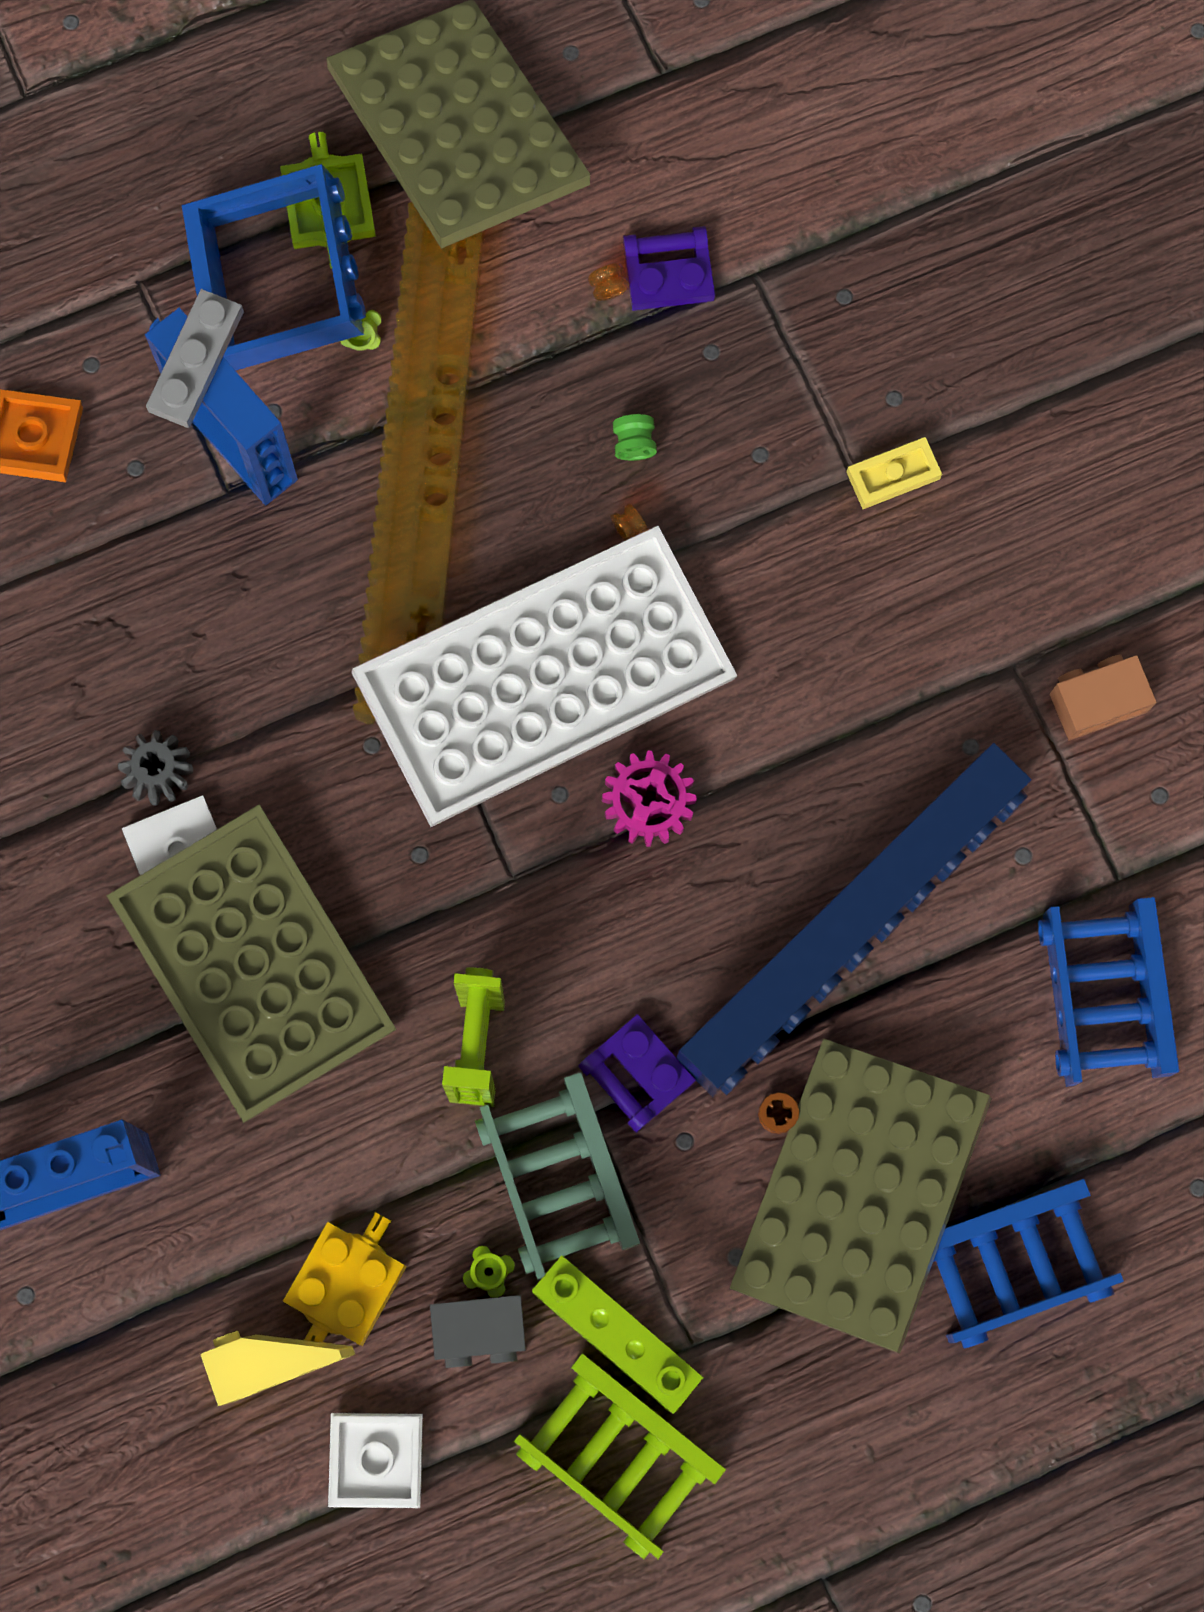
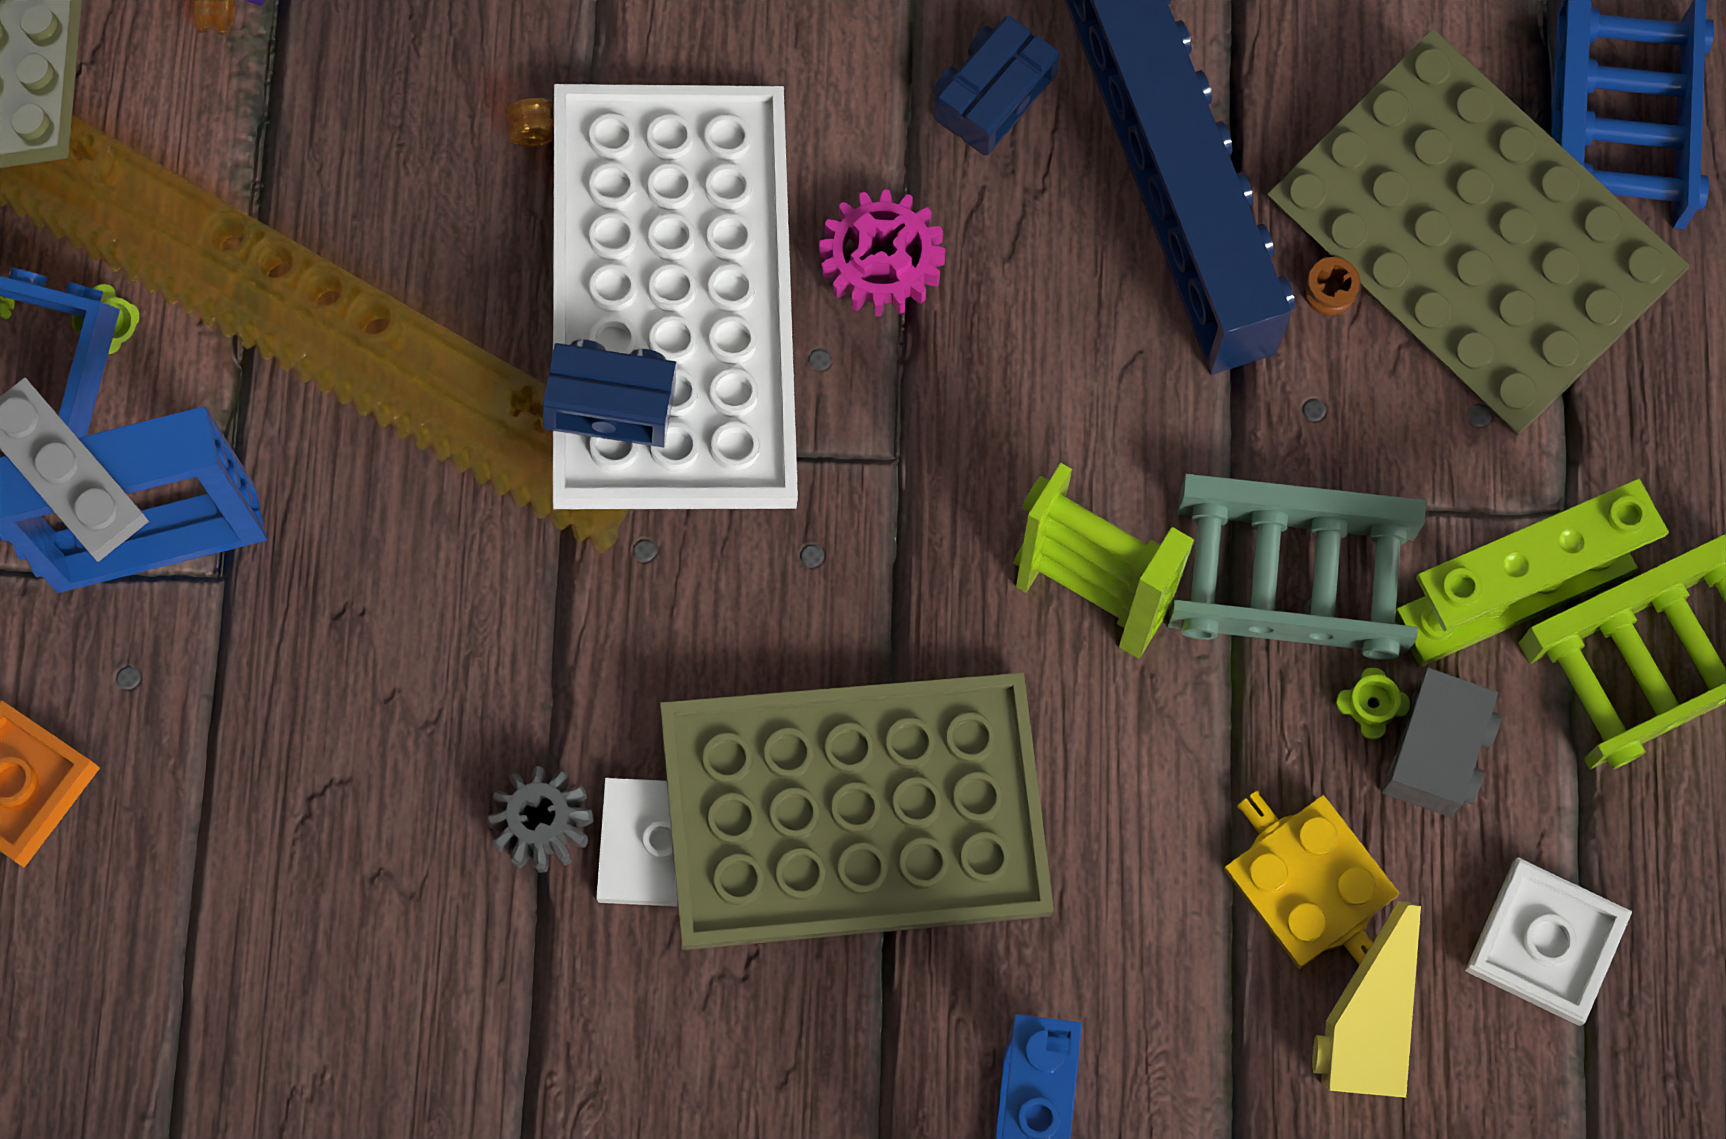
camera: 60 degrees left, 5 degrees down
(439, 669) = (609, 393): none -> dark blue brick
(634, 437) = (426, 66): bright green wheel -> none
(649, 1065) = (1203, 405): dark purple plate -> none
(811, 815) = (995, 84): none -> dark blue brick

